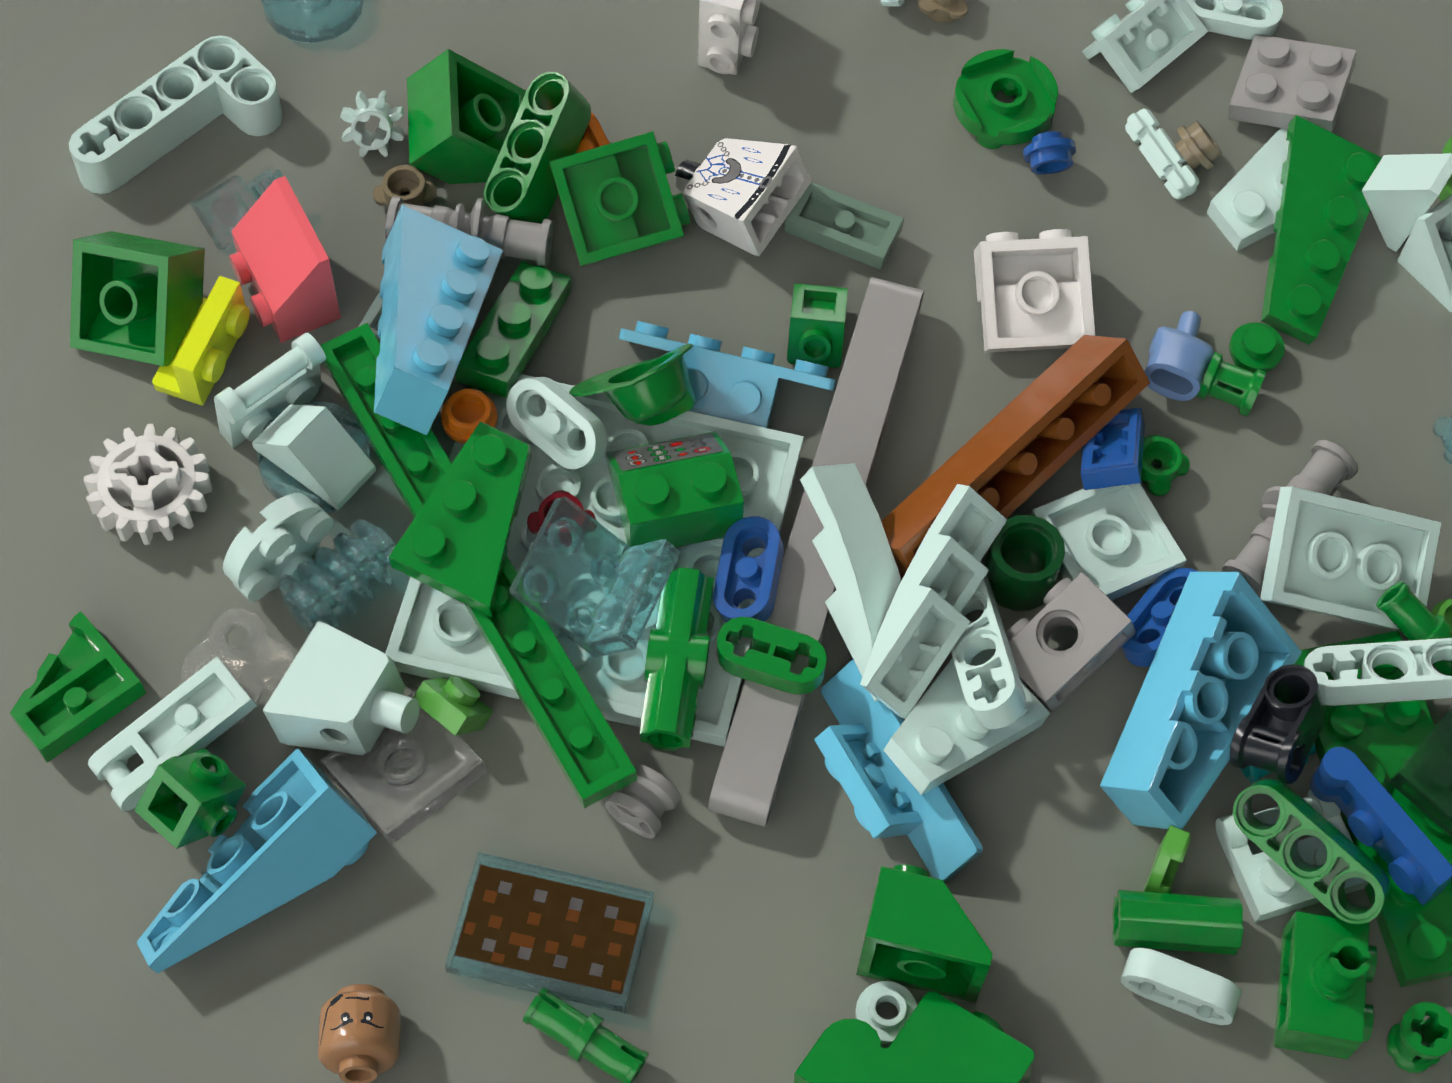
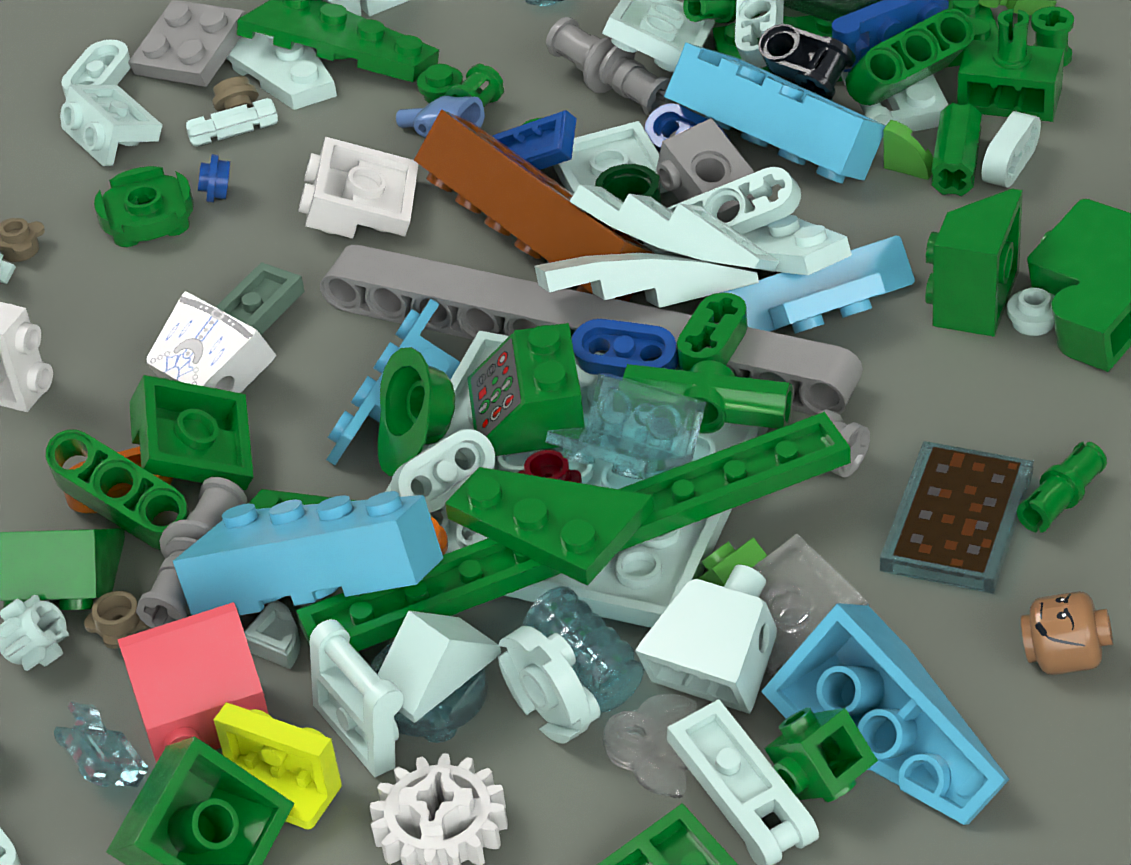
camera: 75 degrees left, 20 degrees down
(817, 324) = (353, 319): green bracket -> none

